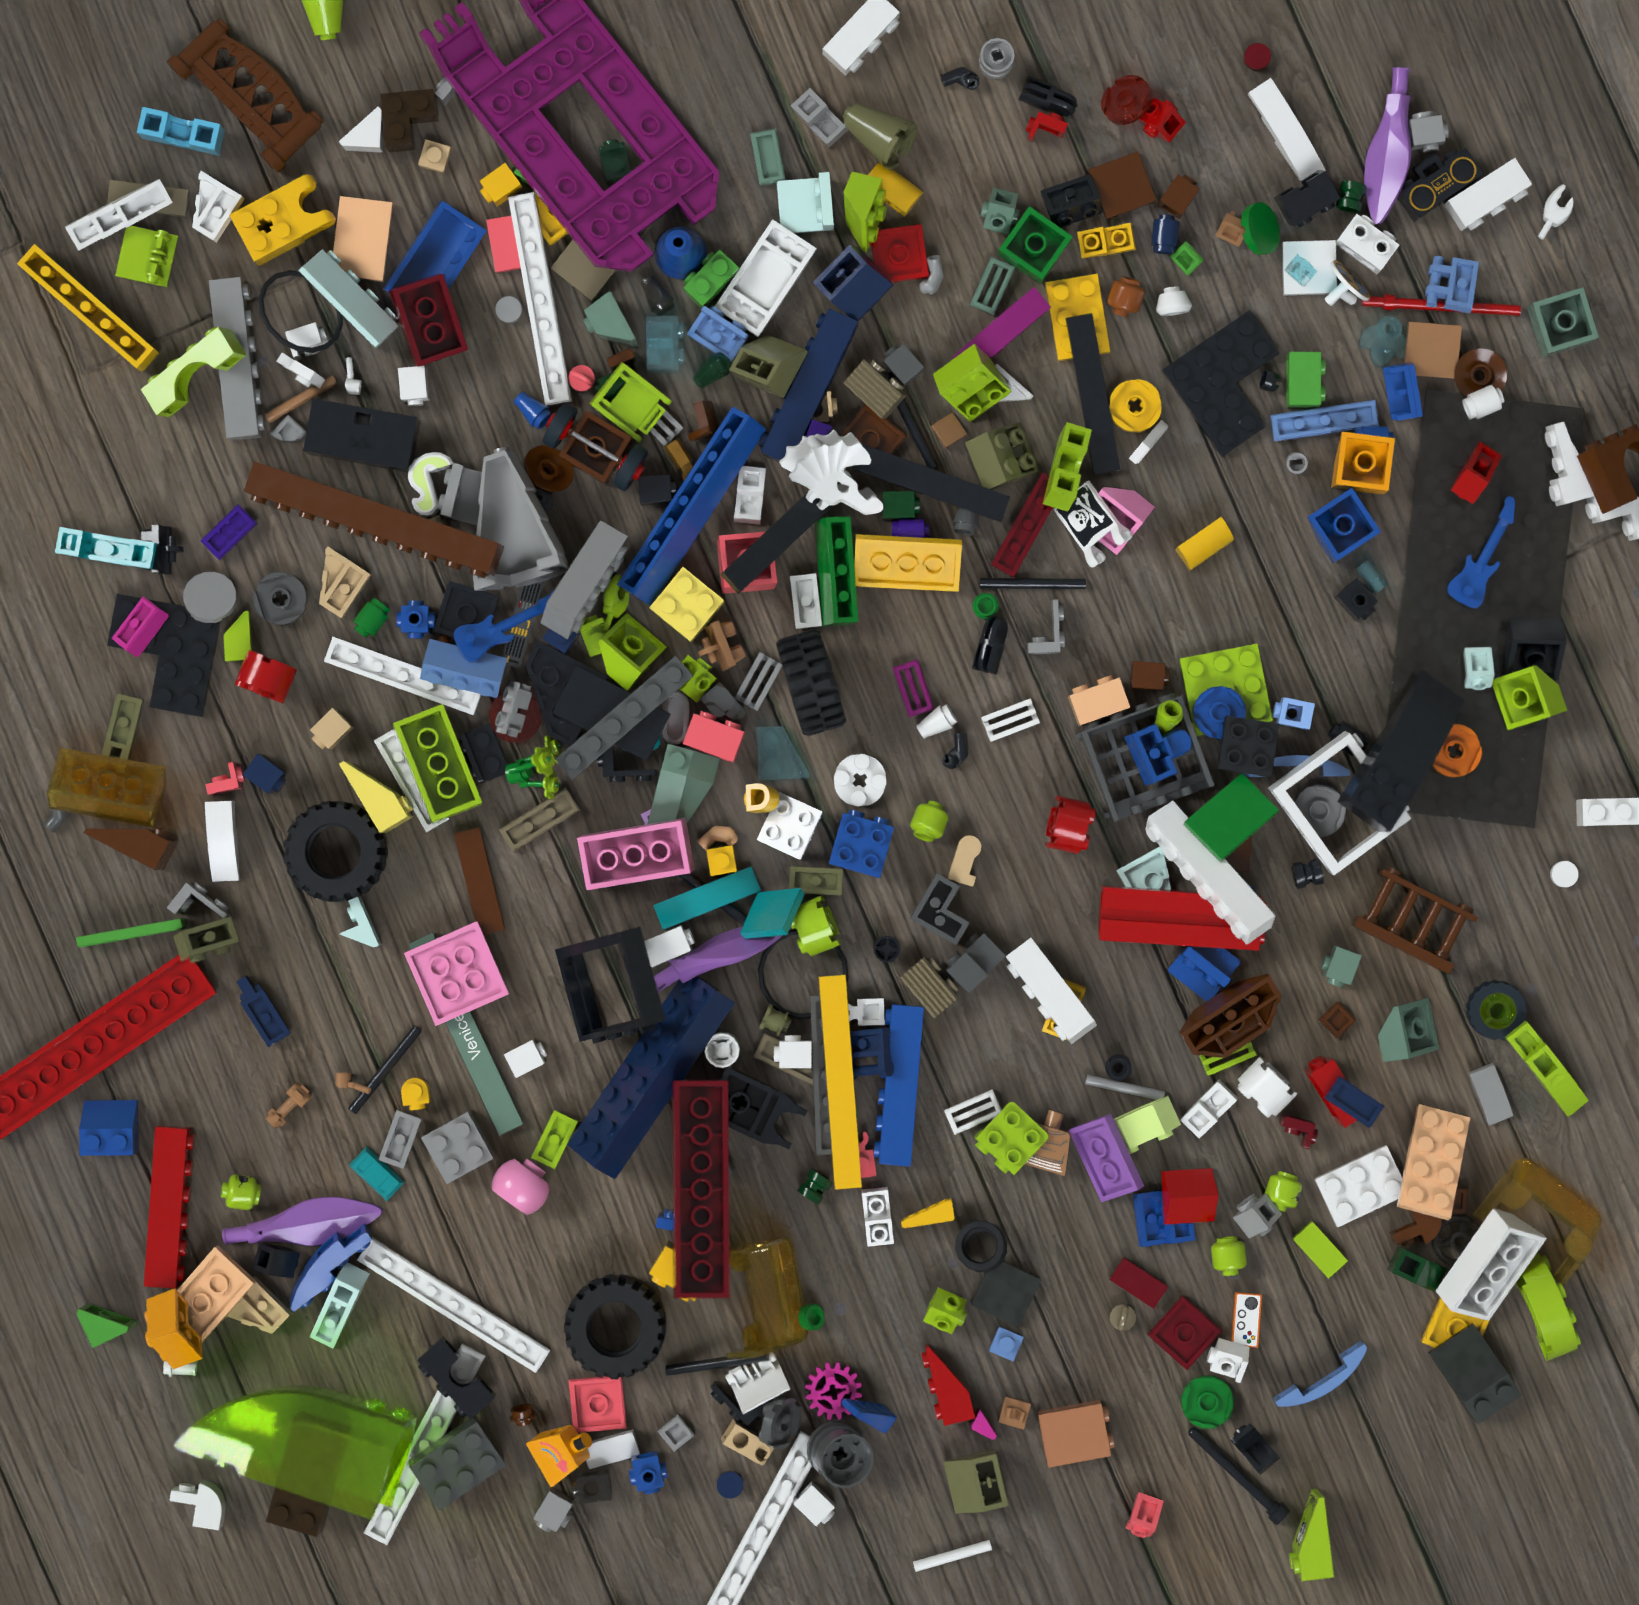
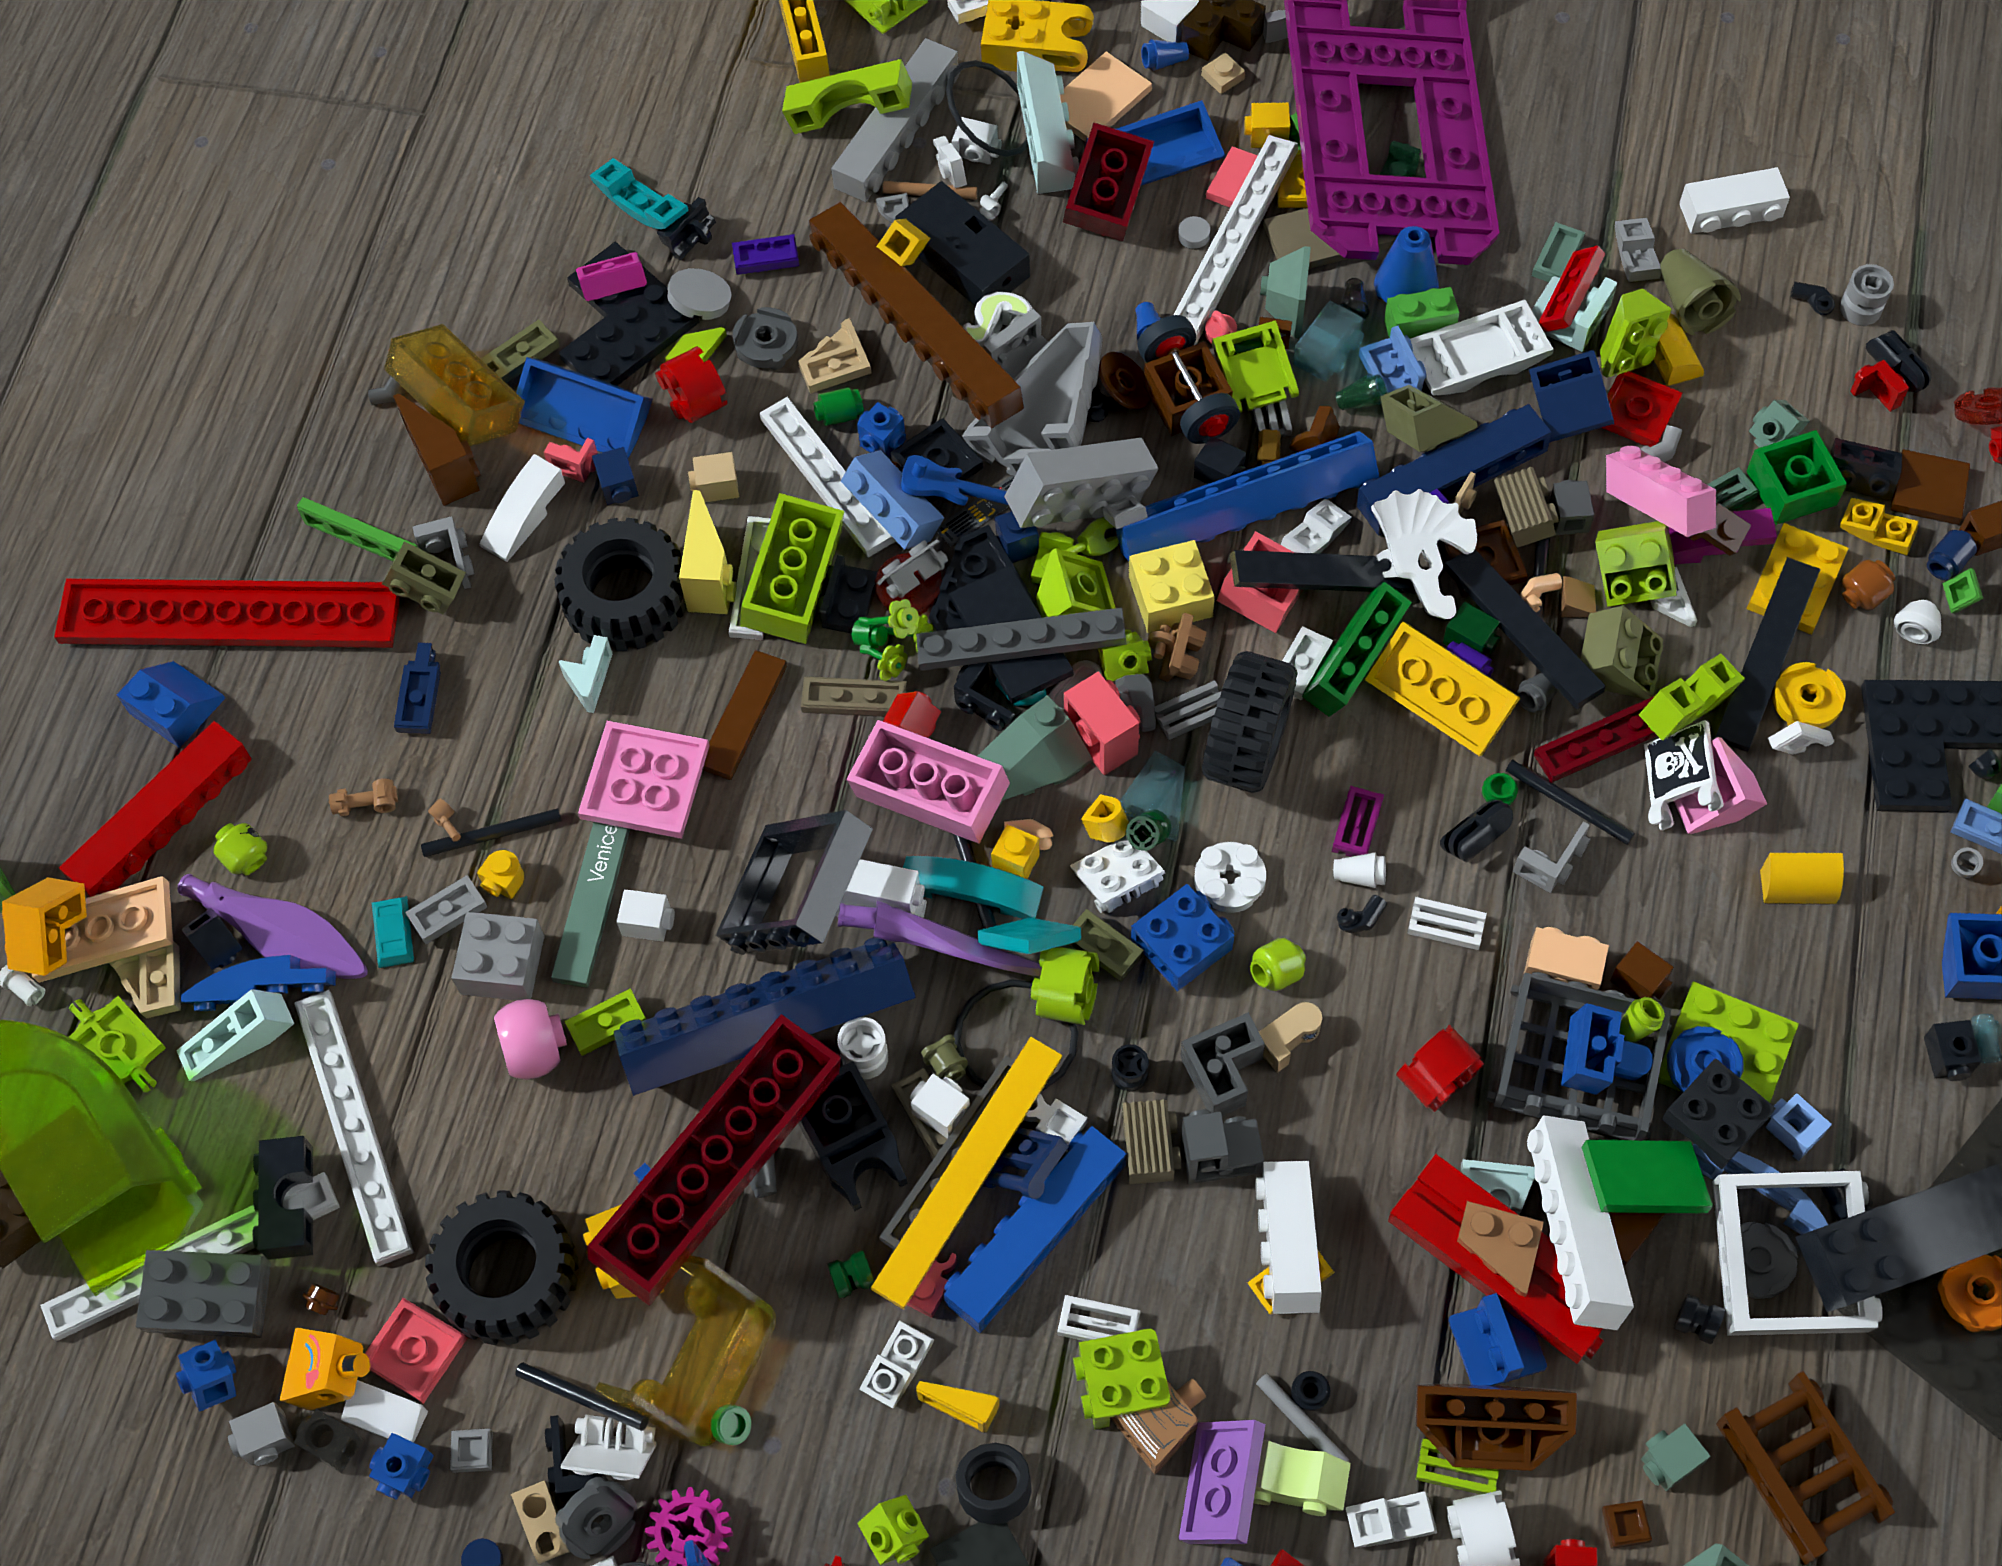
camera: 40 degrees right, 25 degrees down
(199, 738) = (580, 407): none -> blue slope
(270, 1361) = (118, 1040): none -> lime plate
(329, 472) = (903, 242): none -> yellow brick
(382, 171) = (1161, 54): none -> blue cone
(413, 385) = (1049, 235): white brick -> none
(496, 1502) = (207, 1375): none -> blue brick
(590, 815) = (913, 713): none -> red brick
(625, 579) = (1124, 512): none -> light grey tile
(792, 788) = (1155, 826): none -> dark green wheel
(799, 191) = (1571, 289): none -> red plate
(919, 445) = (1537, 586): none -> light nougat arm
(959, 328) = (1661, 491): none -> bright pink brick
(1011, 329) = (1728, 533): none -> bracket
(1175, 916) = (1502, 1241): none -> medium nougat wing

